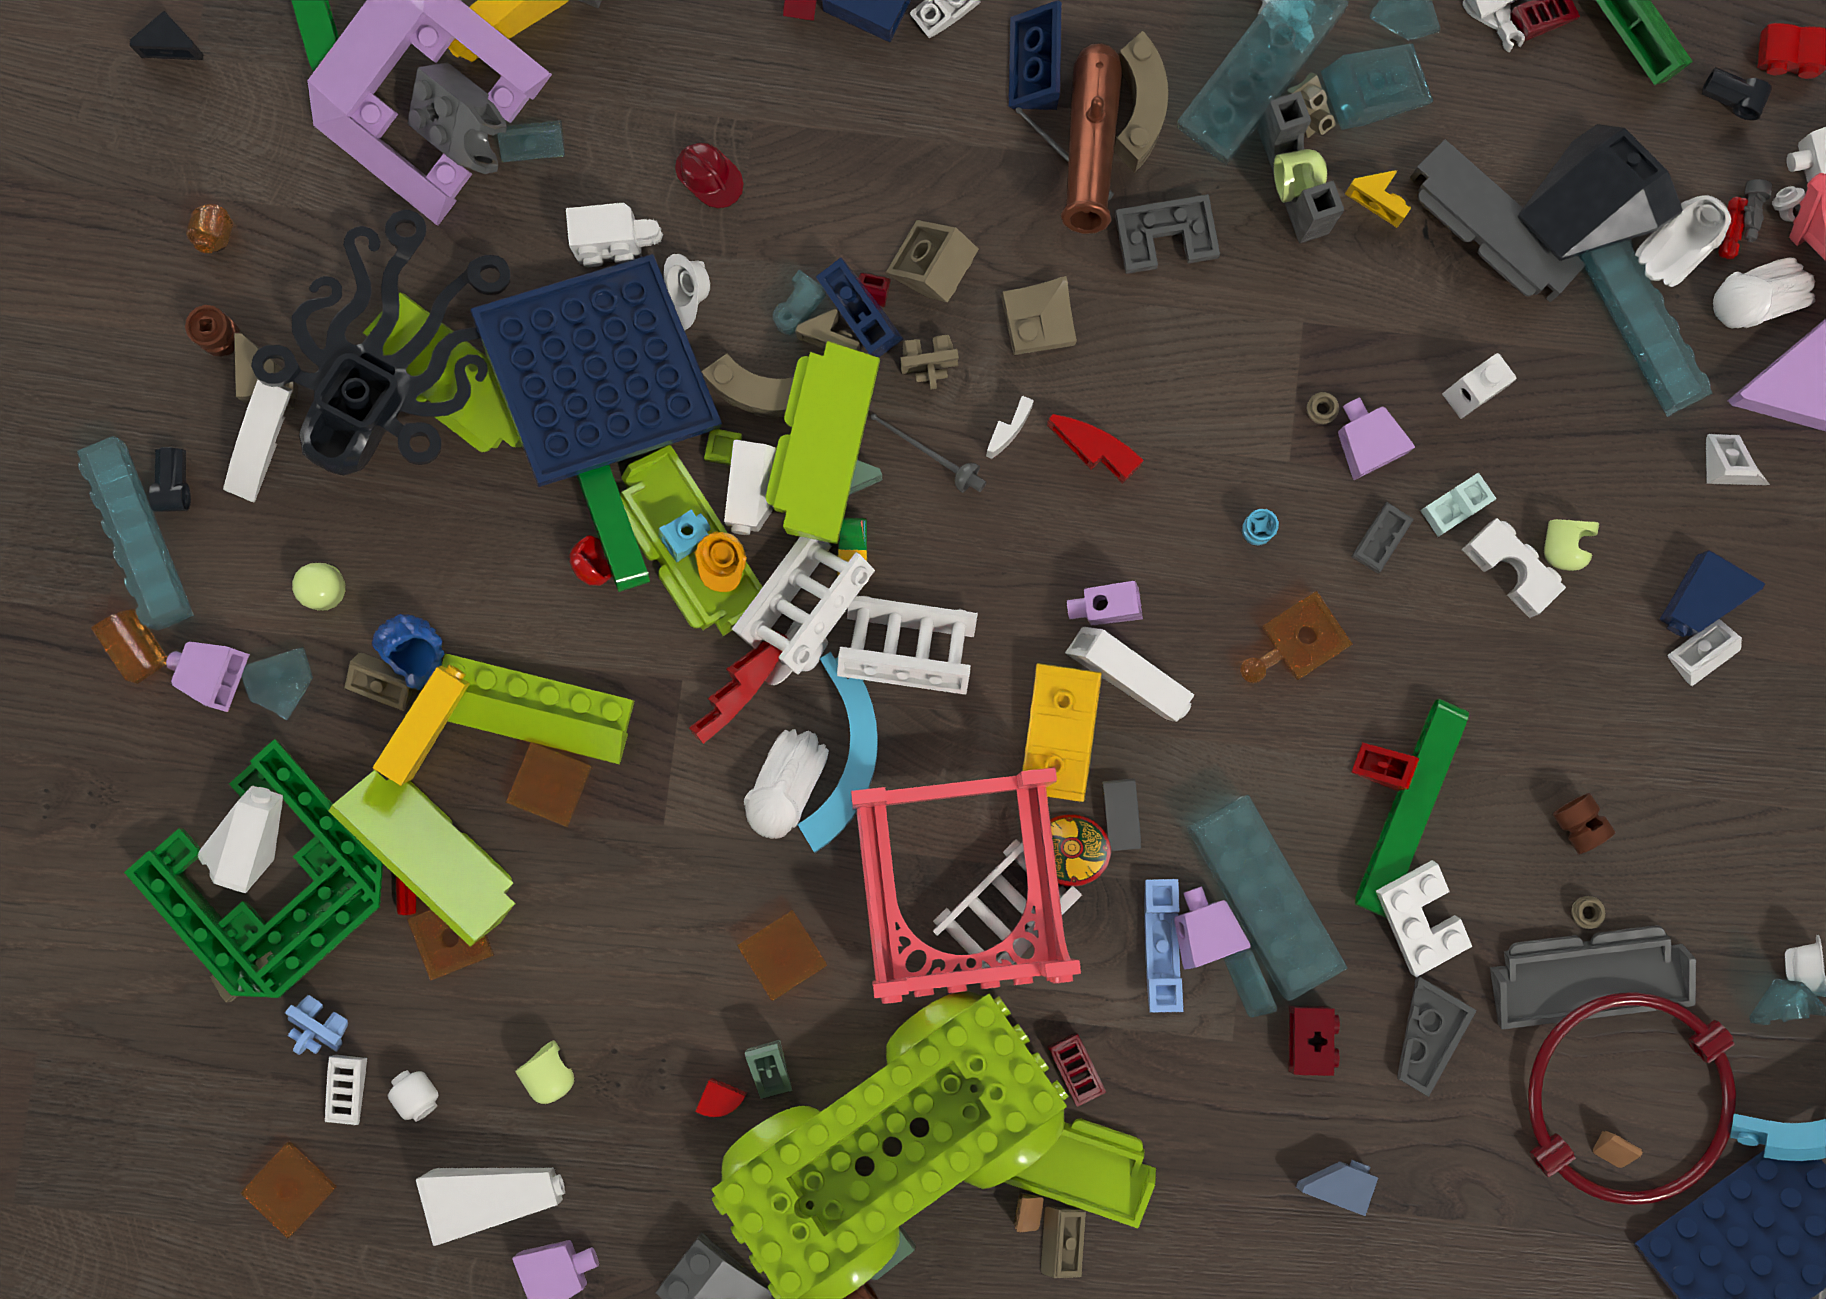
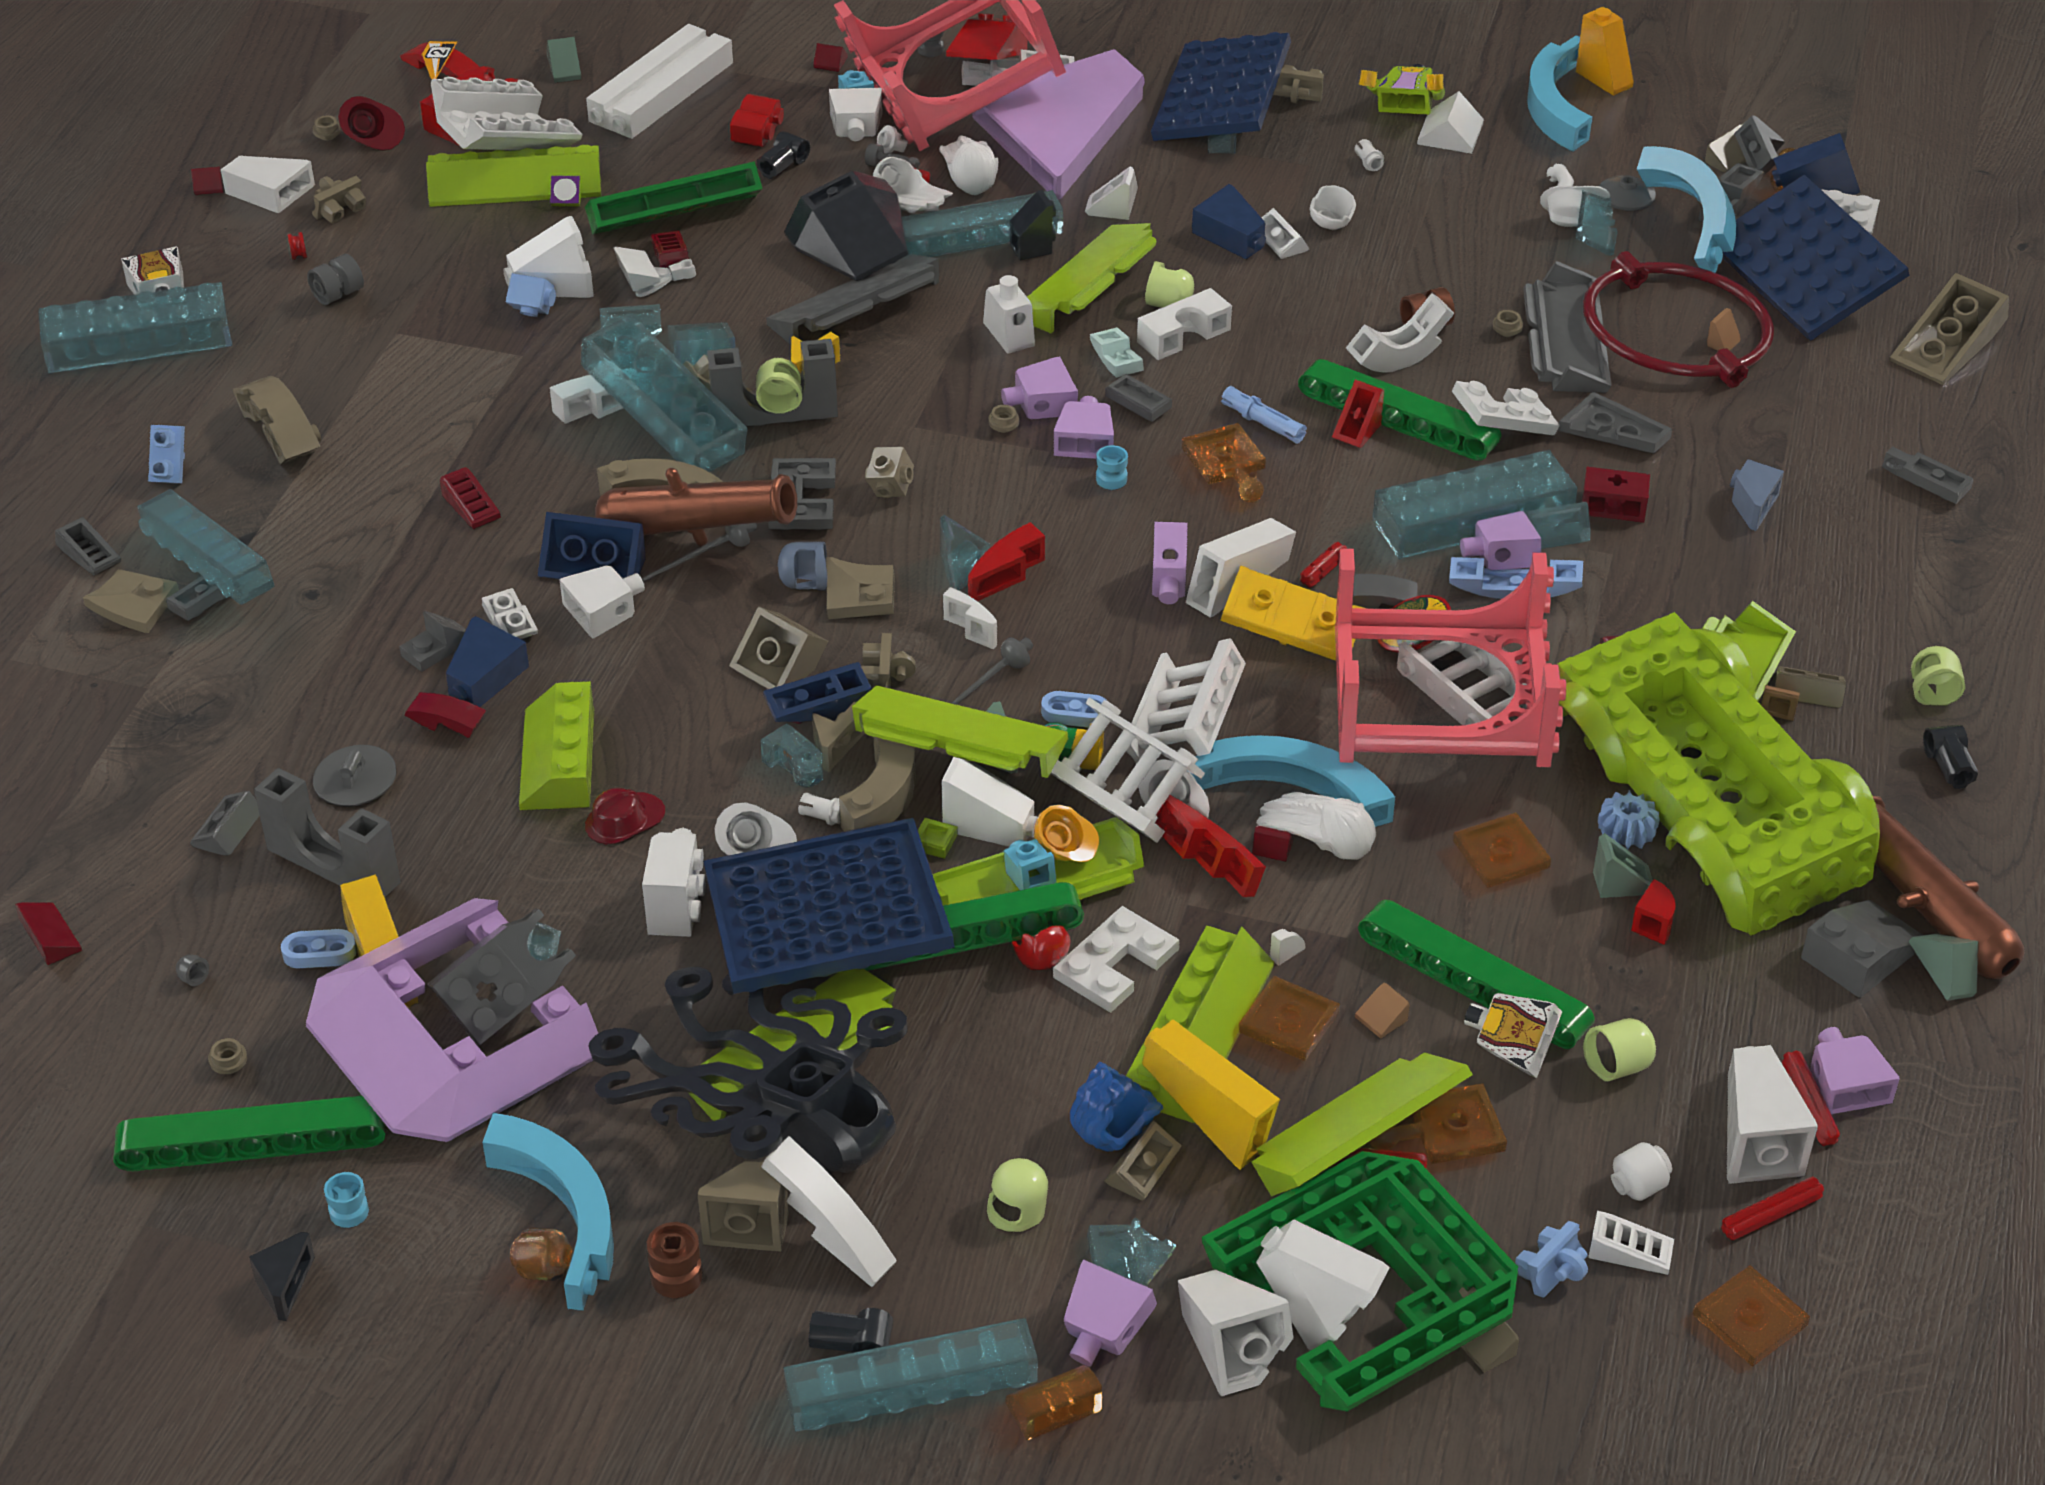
camera: 80 degrees left, 40 degrees down
(205, 769) = (1234, 1327): none -> white slope
(243, 59) = (346, 1199): none -> medium azure wheel
(281, 239) = (560, 1167): none -> medium azure arch
(399, 1206) = (1772, 1208): none -> red axle
(527, 1240) = (1801, 1076): none -> red axle
(546, 979) = (1515, 1029): none -> torso
(570, 863) = (1383, 1011): none -> medium nougat slope
(588, 603) = (1090, 964): none -> white plate
(622, 941) = (1467, 966): none -> green beam
(635, 773) = (1285, 946): none -> white tile
(738, 341) = (822, 808): none -> white pin
(762, 744) = (1272, 843): none -> dark red slope
(773, 98) = (558, 748): none -> lime slope
(824, 1072) = (1629, 819): none -> light blue gear
(903, 545) = (1069, 708): none -> light blue plate
(977, 82) = (600, 598): none -> white torso
(1064, 257) = (806, 562): none -> sand blue helmet
(1101, 404) = (959, 551): none -> clear light blue slope
(1156, 754) = (1322, 565): none -> red axle
(1202, 311) = (889, 472): none -> dark tan brick
(1317, 491) = (1083, 428): none -> lavender torso
(1385, 657) = (1254, 409): none -> light blue pin
(1519, 801) = (1404, 345): none -> white arch
(1576, 450) = (1090, 272): none -> lime slope
(1641, 384) = (1033, 227): none -> black slope
(1755, 703) = (1332, 207): none -> white hair

